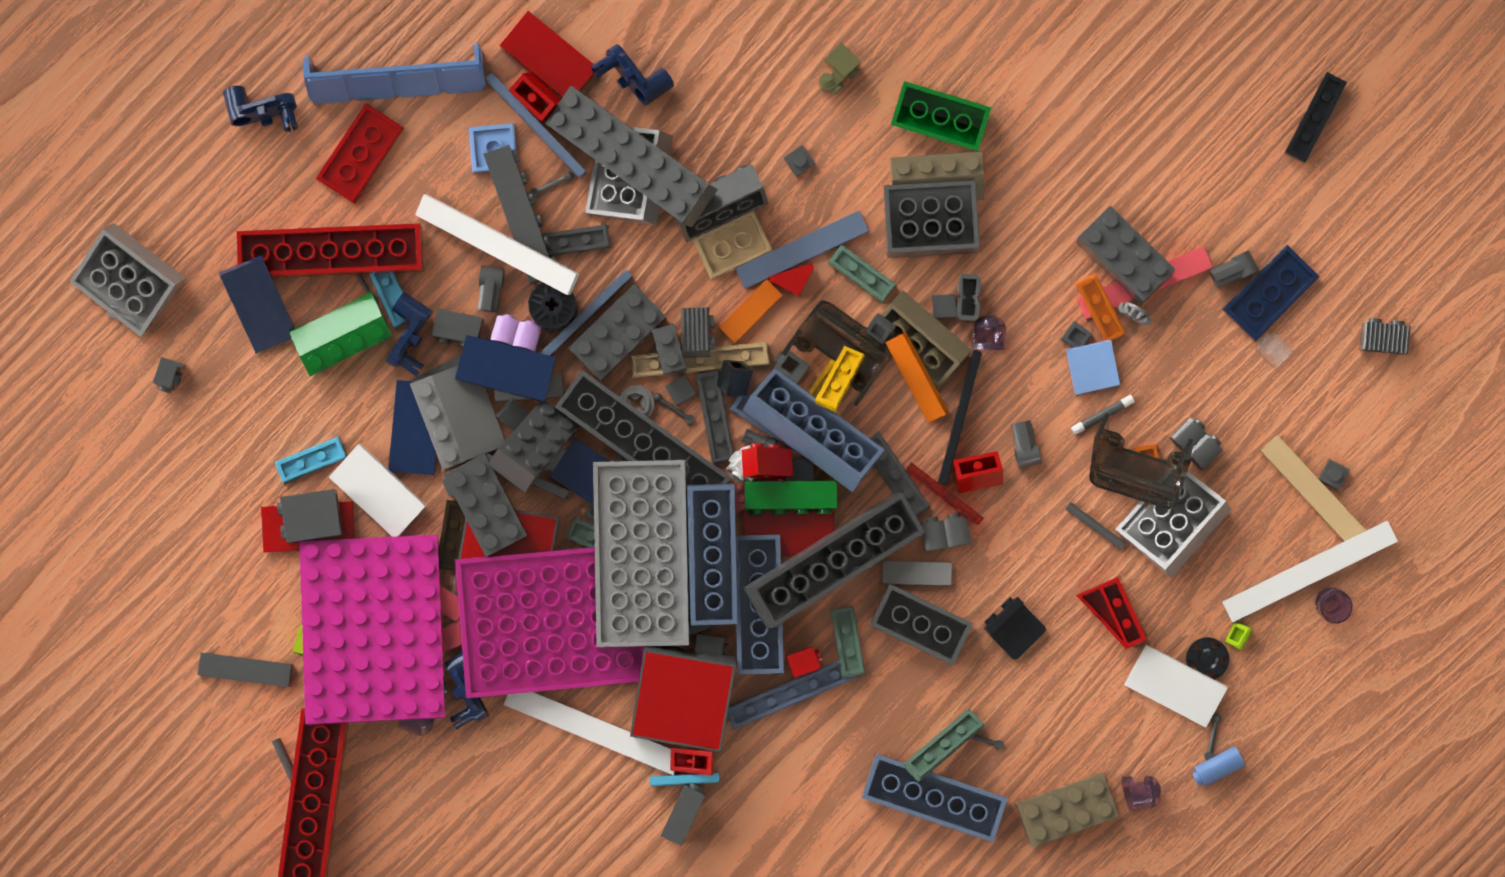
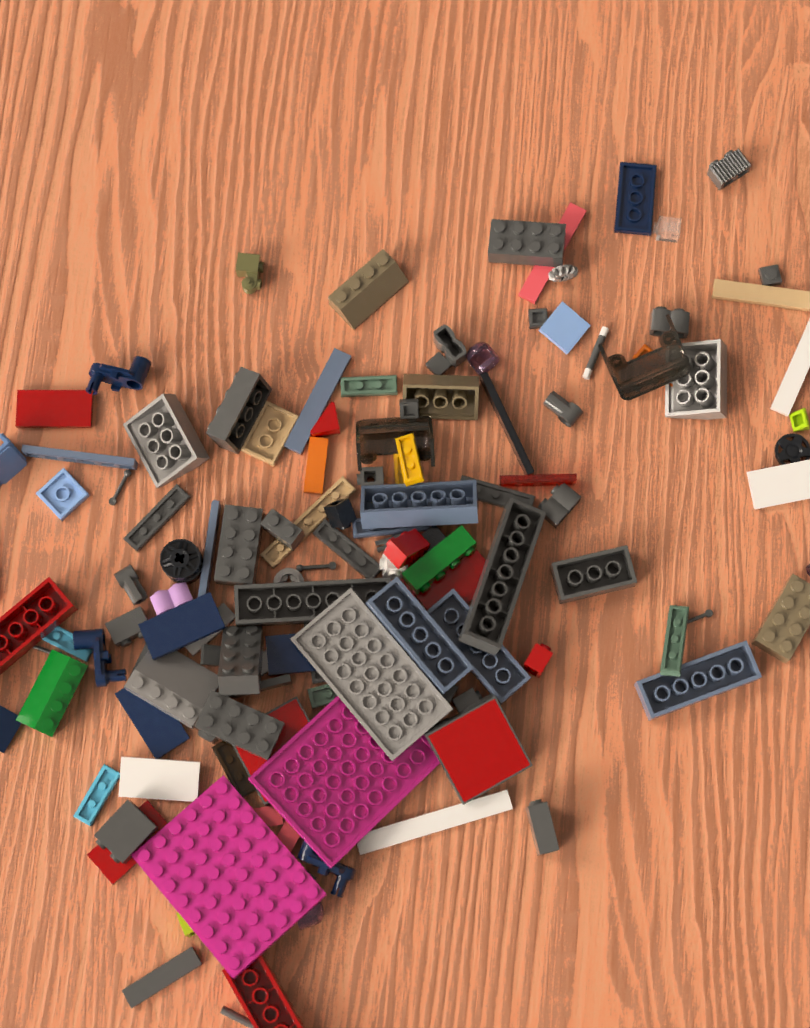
camera: 35 degrees left, 10 degrees down
(497, 244) = (112, 549): white tile -> none
(516, 201) = (113, 520): dark grey brick -> none
(535, 95) = (65, 437): red brick -> none
(631, 156) = (157, 422): dark grey brick -> none
(680, 390) = (311, 551): dark grey tile -> none
(683, 779) = (523, 804): medium azure tile -> none
(692, 760) = (518, 787): red slope -> none
(696, 332) = (291, 504): dark grey brick -> none
(786, 695) = (546, 688): sand blue tile -> none
(799, 160) = (270, 348): dark grey plate -> none
(847, 642) = (555, 625): sand green tile -> none
(917, 377) = (458, 420): orange tile -> none
(917, 573) = (562, 545): light grey tile -> none
(931, 219) = (385, 316): dark grey slope -> none
(940, 116) = (338, 247): green slope -> none
(978, 472) = (547, 448): red brick -> none
(1014, 627) = (654, 529): black bracket -> none
(1097, 527) = (650, 424): dark grey bar -> none
(1100, 307) = (537, 287): orange tile -> none
(1115, 610) = (710, 465): red wedge -> none
(1239, 267) = (602, 197): dark grey piece -> none
(1315, 117) = (572, 75): black plate -> none

